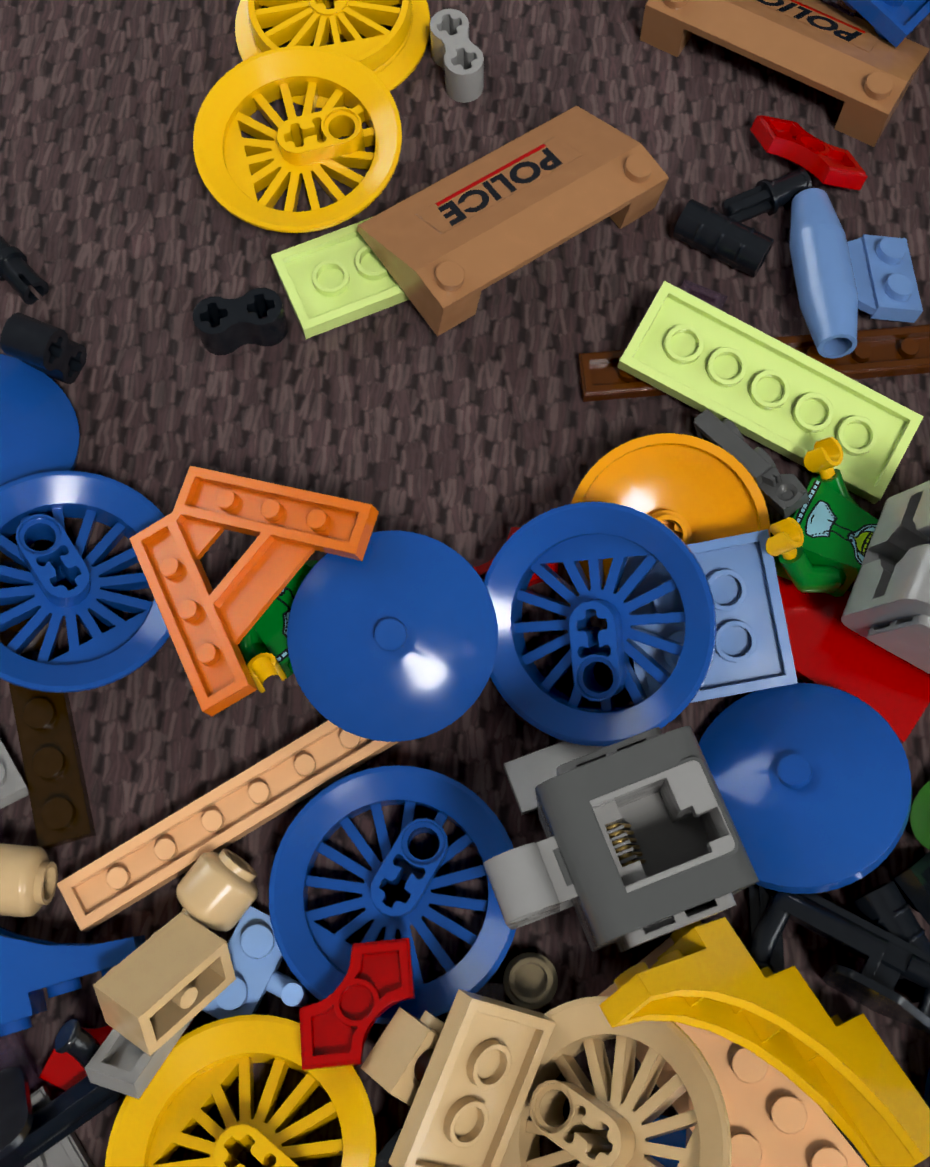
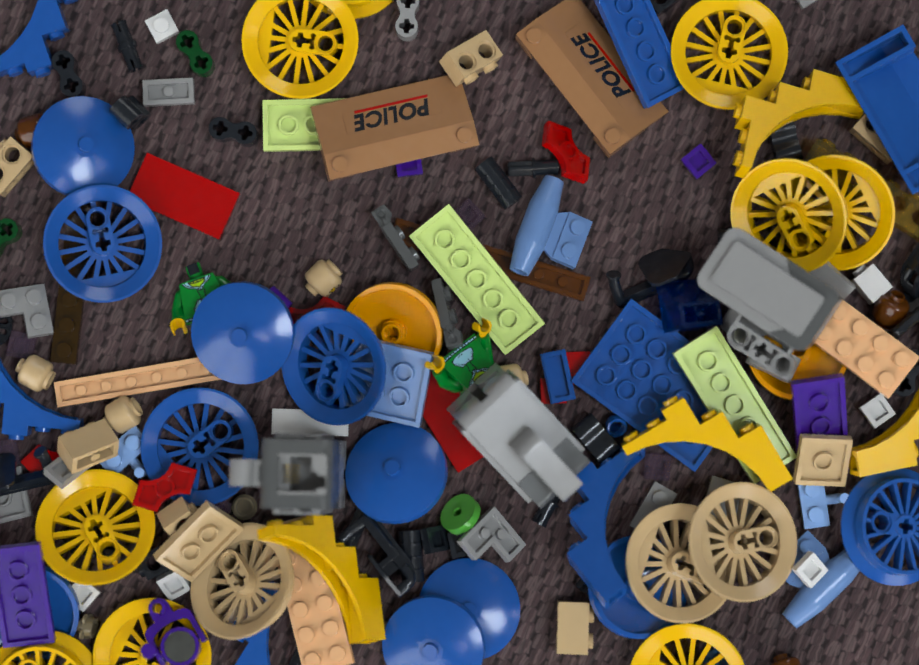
camera: 25 degrees right, 15 degrees up
(58, 216) = (162, 26): none -> white plate
(104, 304) = (168, 92): none -> light grey plate
(129, 228) = (195, 53): none -> dark green axle
(158, 448) = (184, 196): none -> red tile
(211, 622) = (160, 294): orange plate -> none
(498, 493) = (323, 278): none -> tan head
(562, 267) = (410, 168): none -> dark purple plate
(589, 70) = (469, 56): none -> tan brick
(599, 379) = (395, 237): none -> dark grey hinge

